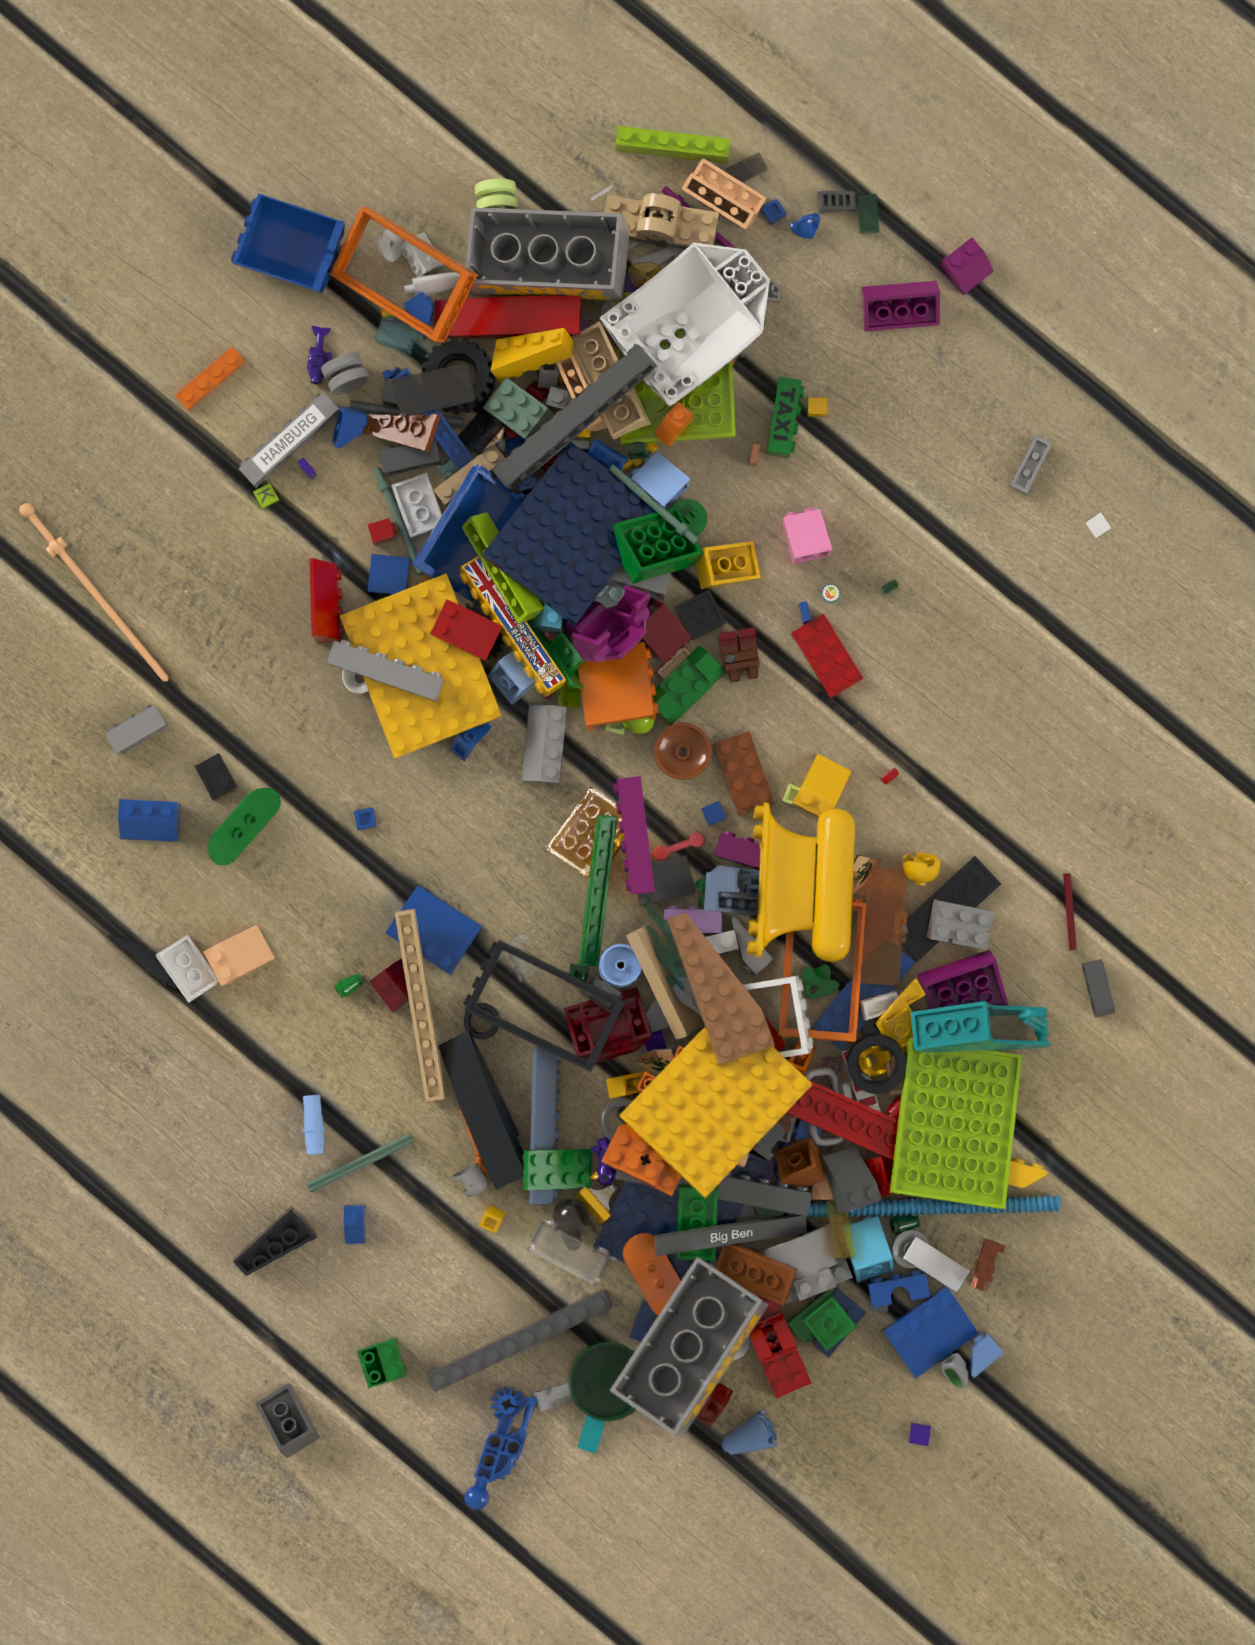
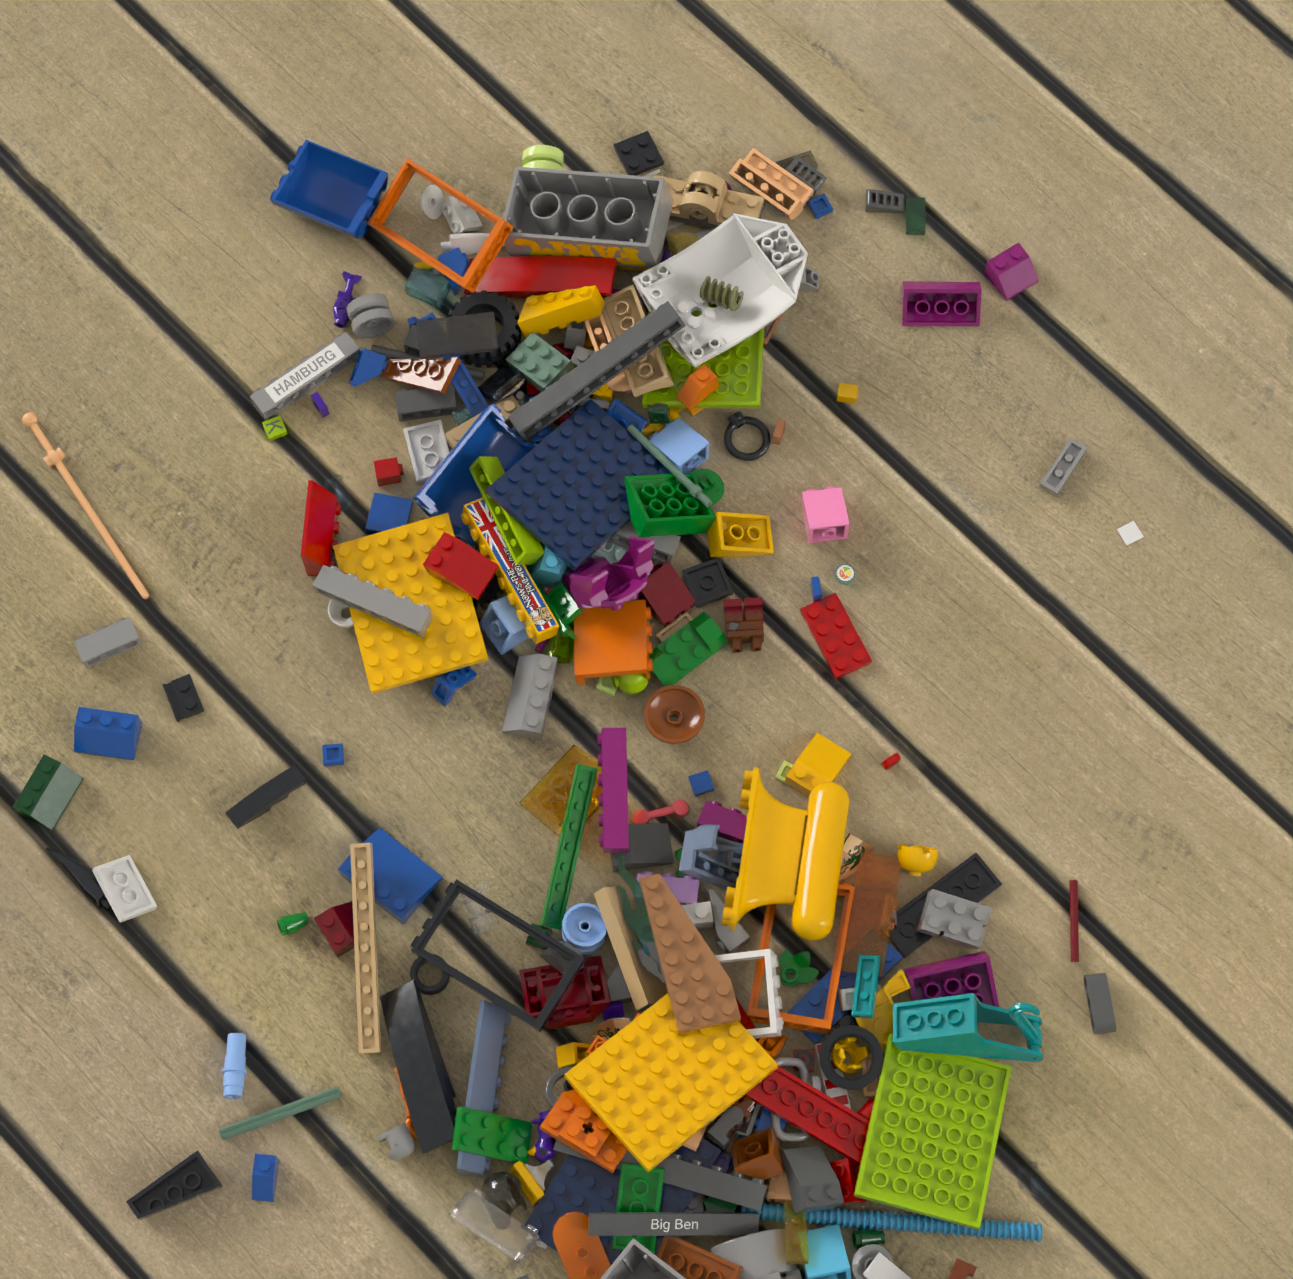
camera: 10 degrees right, 15 degrees down
(102, 883) = (47, 792): none -> slope
(210, 378) = (233, 312): orange plate -> none
(239, 955) = (180, 881): light nougat slope -> none
(243, 825) = (204, 746): green piece -> none
(308, 867) = (265, 797): none -> black slope
(384, 487) = (396, 430): sand green bar -> none
(492, 1219) = (415, 1189): yellow slope -> none
(588, 172) = (638, 154): none -> black plate
(672, 144) = (723, 134): lime brick -> none
(688, 328) = (721, 296): none -> olive piece
(713, 447) = (738, 420): none -> black piece
(743, 772) = (736, 743): dark orange plate -> none
(773, 184) = (815, 174): none -> dark grey slope
(784, 416) = (812, 398): green brick -> none
(806, 226) = (851, 224): blue piece -> none
(884, 997) = (866, 986): none -> teal tile
(889, 587) = (906, 572): clear green tile -> none
(1024, 1175) = (1004, 1196): yellow slope -> none

